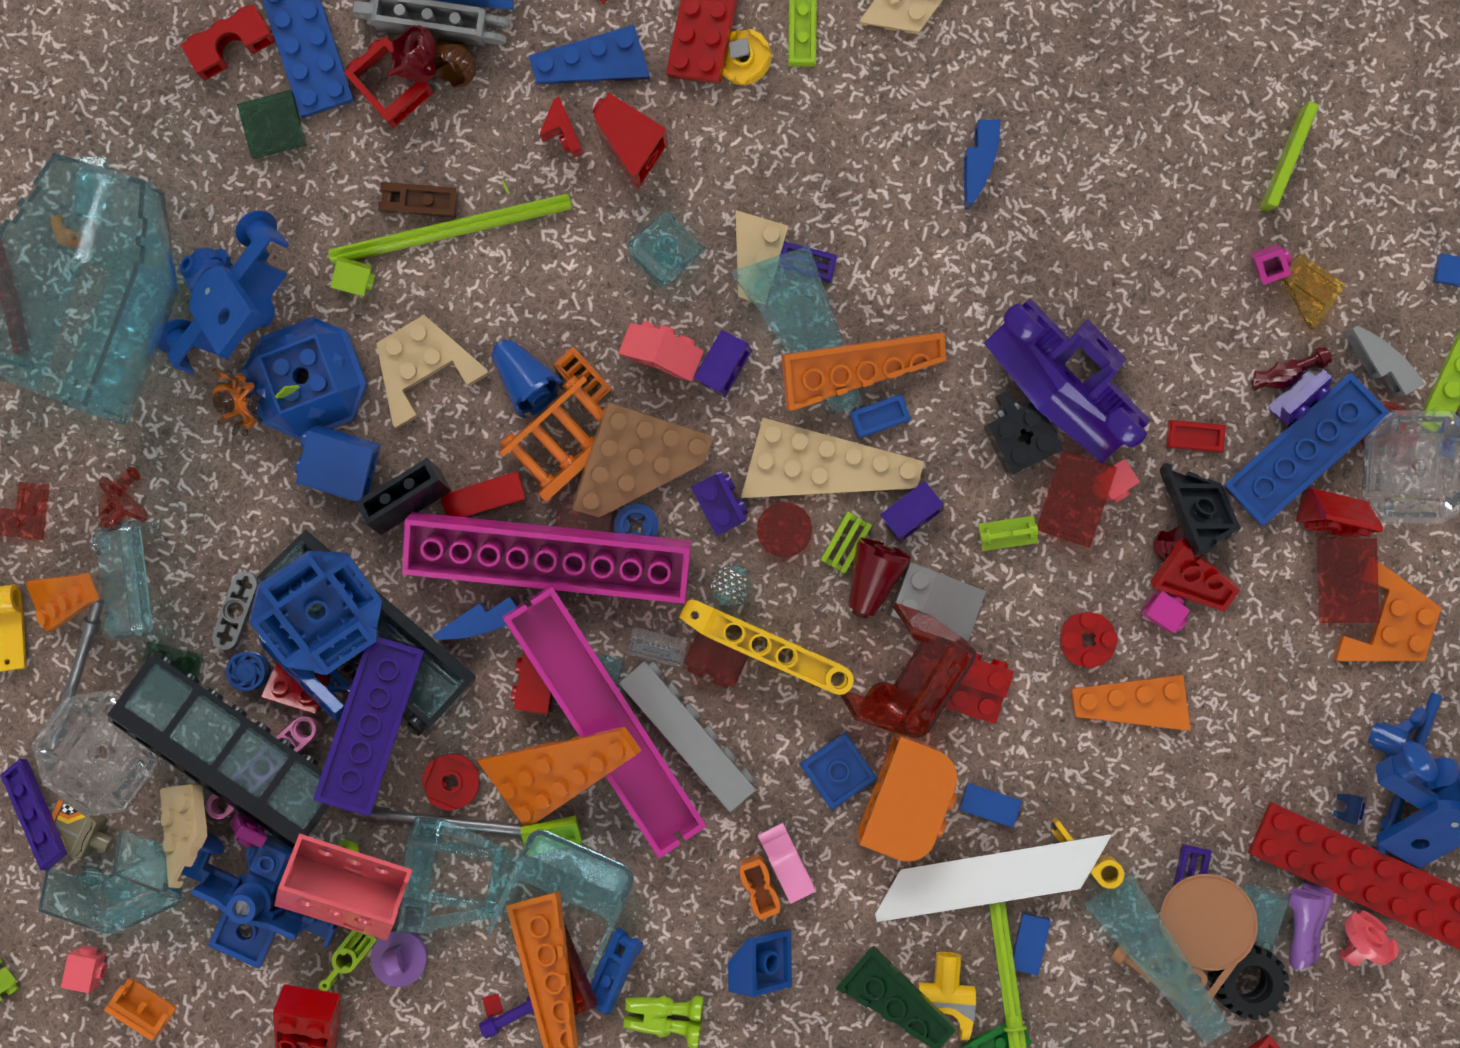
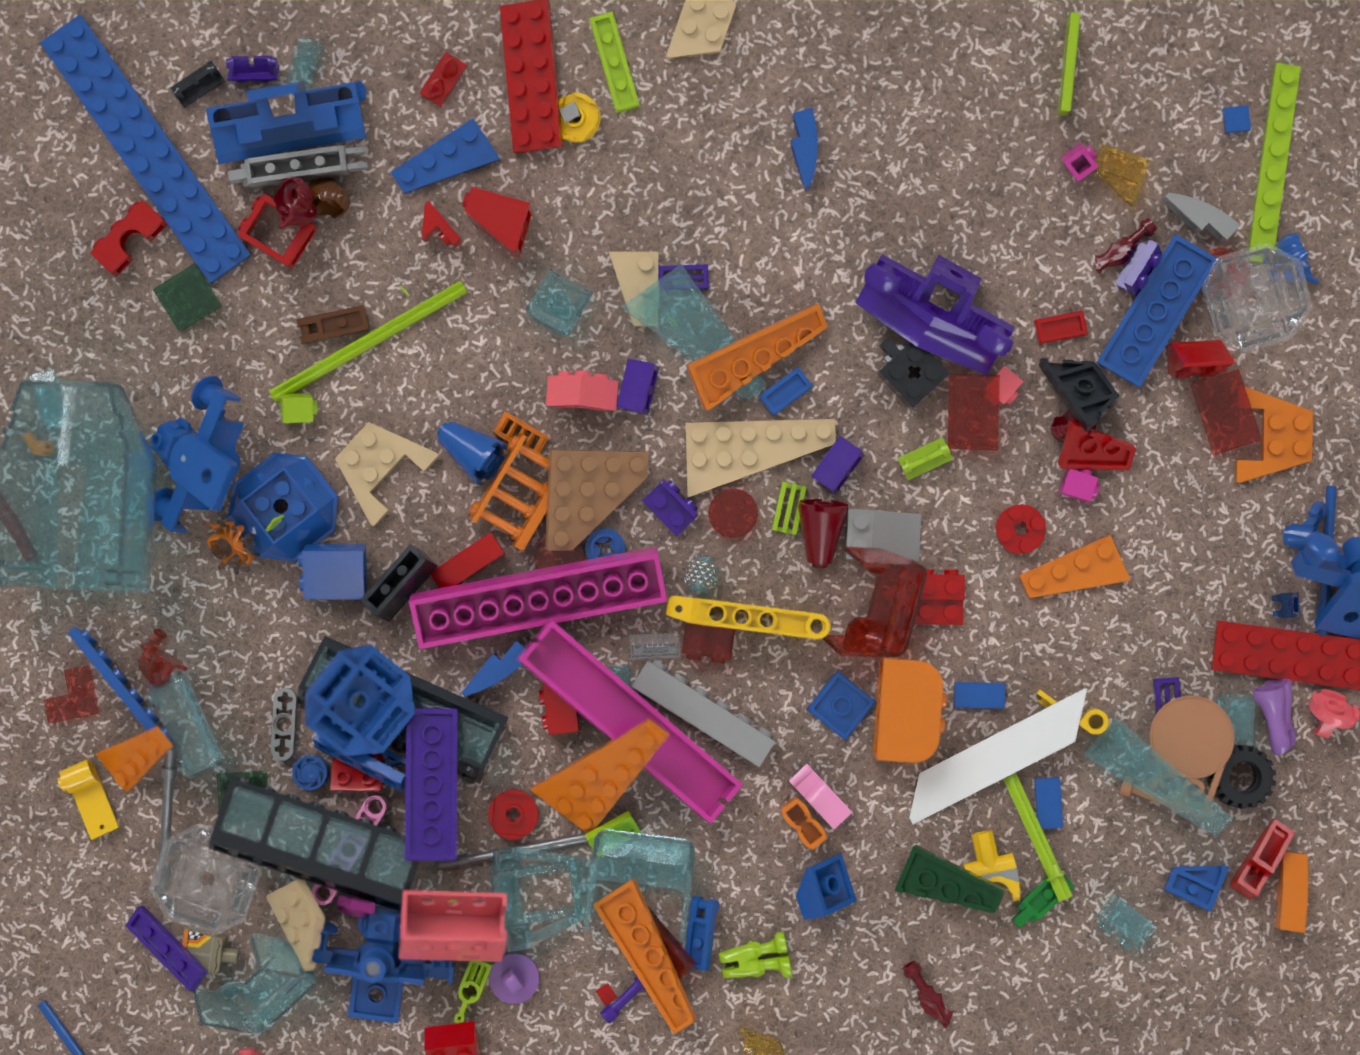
camera: 15 degrees left, 0 degrees up
(66, 509) = (115, 679): none -> blue plate

